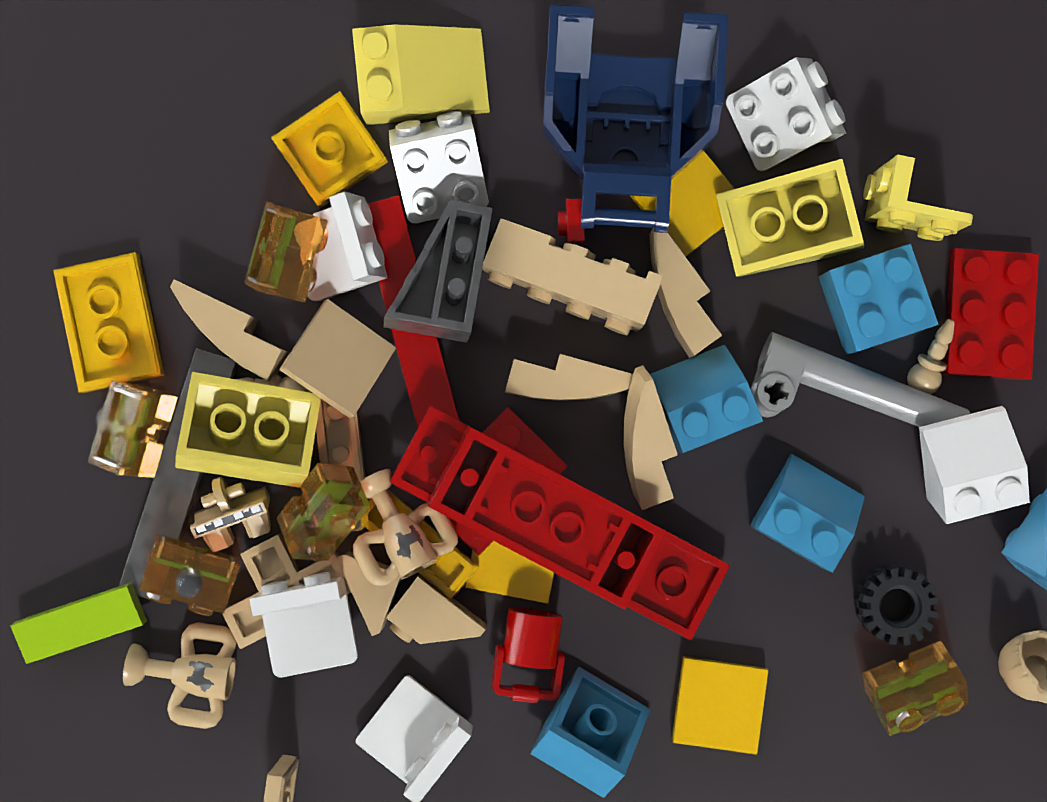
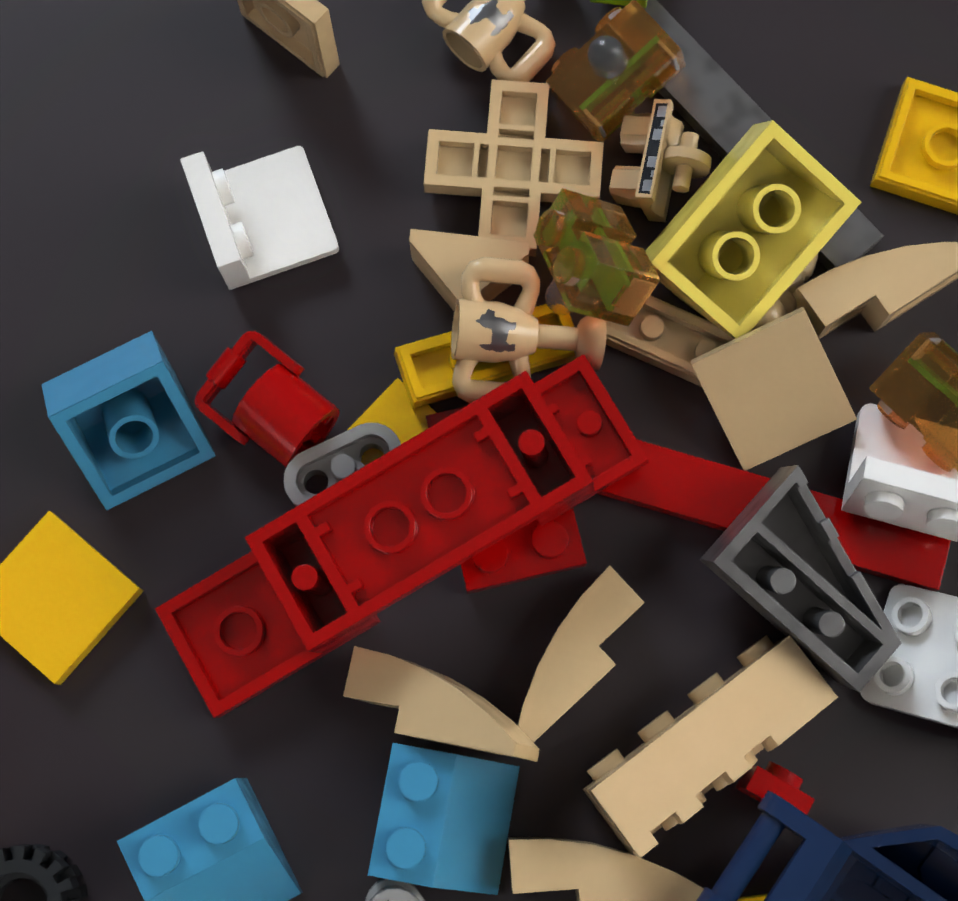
camera: 120 degrees right, 10 degrees down
(131, 429) = (828, 104): clear orange piece -> none
(307, 624) = (473, 163): white bracket -> none
(431, 616) = (388, 312): tan slope -> none
(540, 585) = (336, 458): none -> light grey plate

